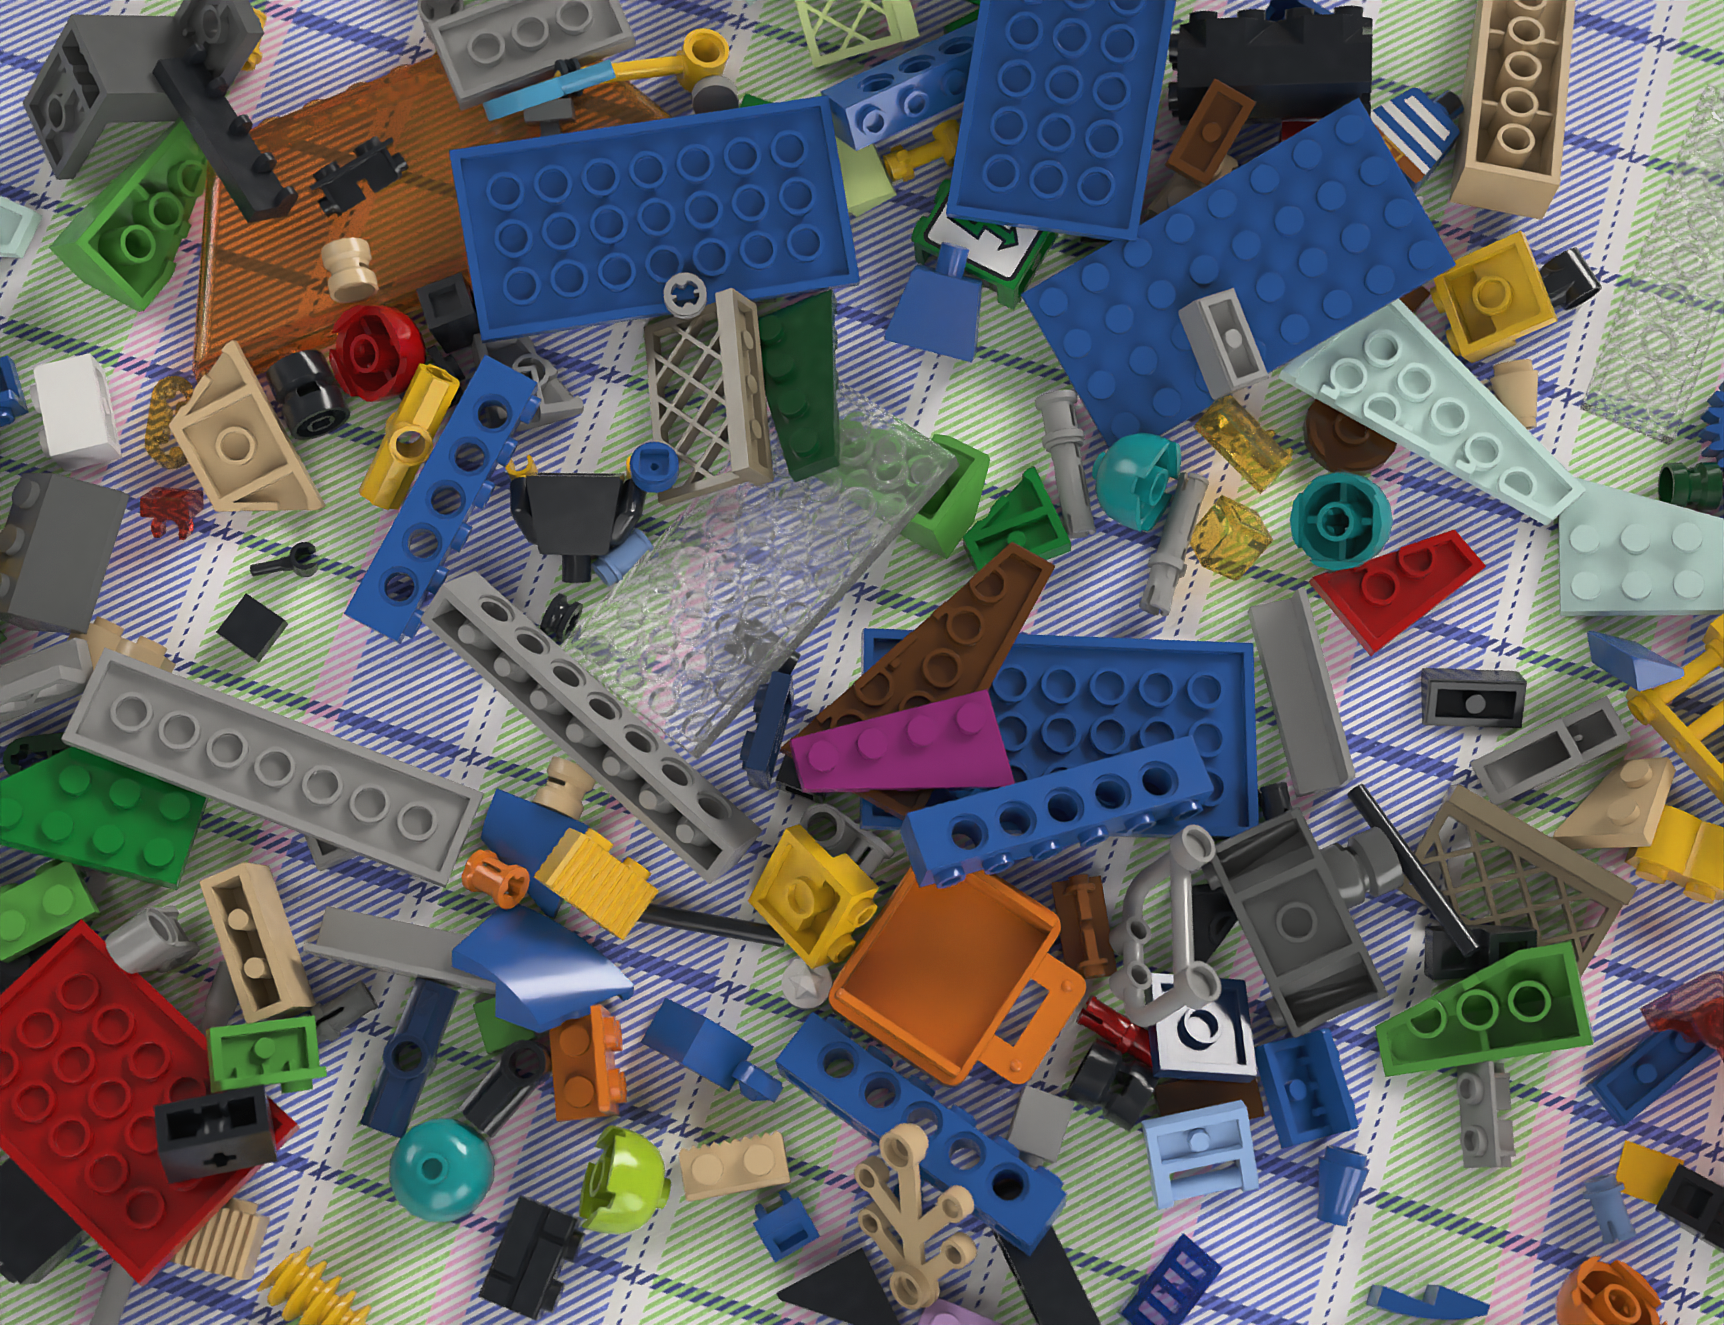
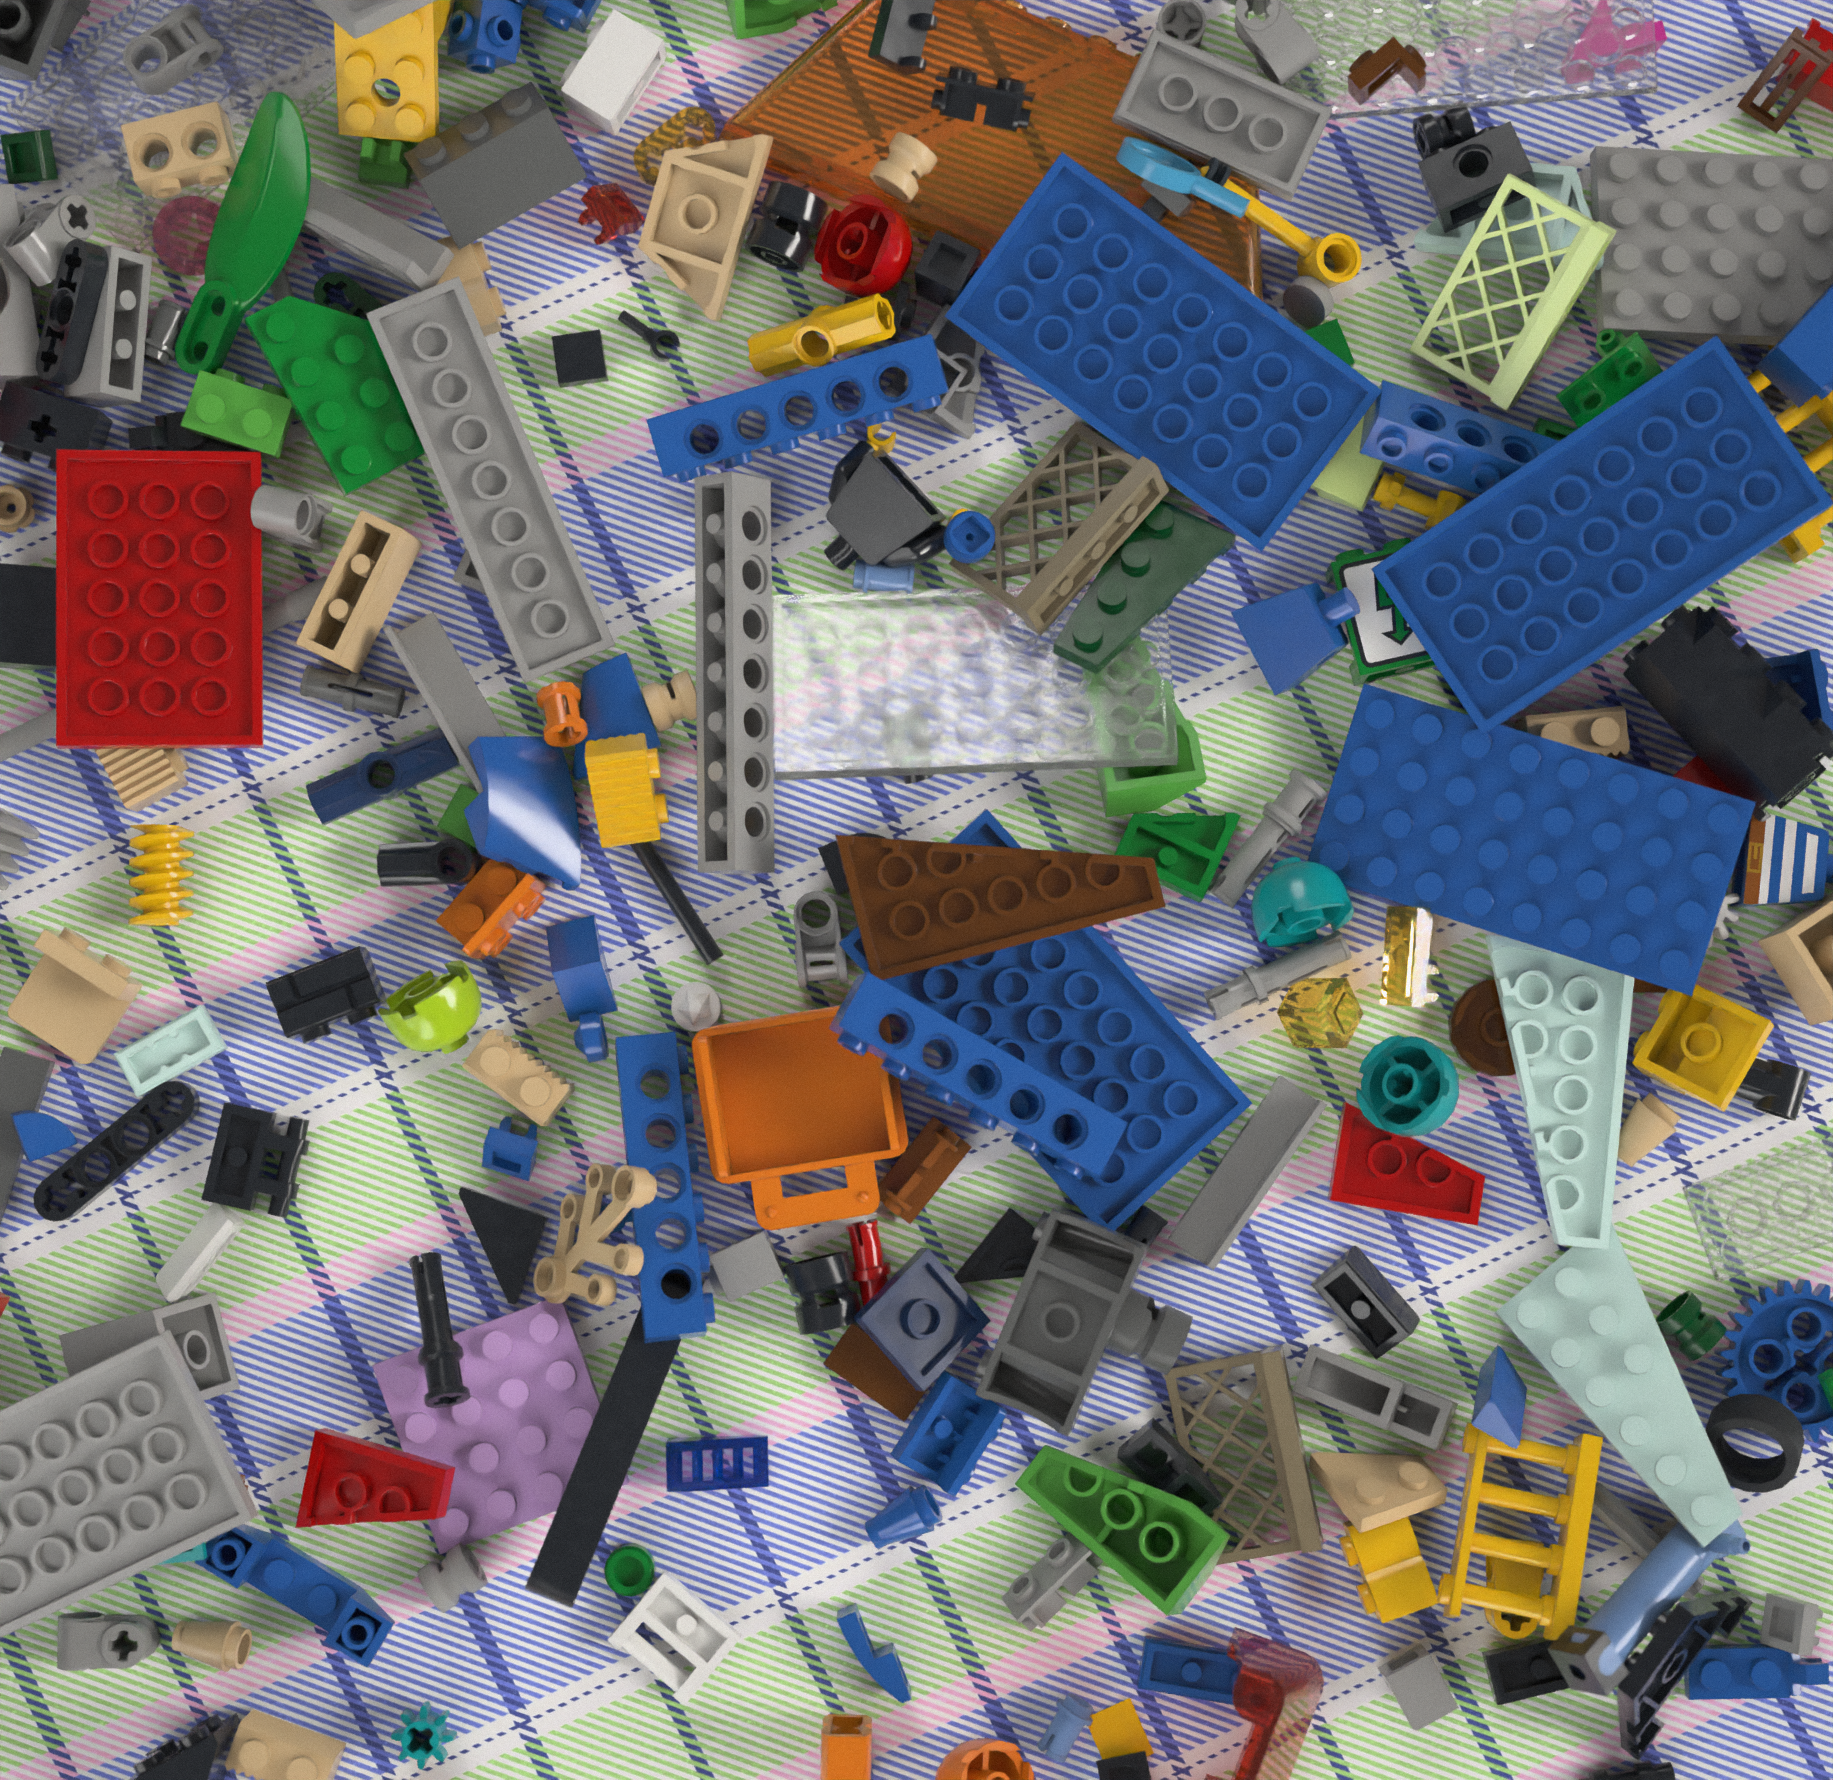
camera: 45 degrees right, 10 degrees up
(215, 1133) = (199, 699): black brick -> none
(265, 1054) = (284, 677): bright green bracket -> none
(441, 1170) = (328, 872): teal cylinder -> none
(561, 617) = (795, 576): black bush -> none
(681, 281) = (1129, 421): light grey bush -> none
(762, 747) = (866, 798): dark blue plate -> none
(813, 898) = (757, 957): yellow plate -> none
(924, 747) = (926, 934): magenta wing -> none
(1194, 982) = (935, 1290): light grey bar -> none
(1195, 1141) = (839, 1390): light blue plate -> none
(1210, 133) = (1624, 712): reddish brown plate -> none
(1222, 343) = (1463, 874): light grey slope -> none
(1416, 873) = (1186, 1373): black bar -> none

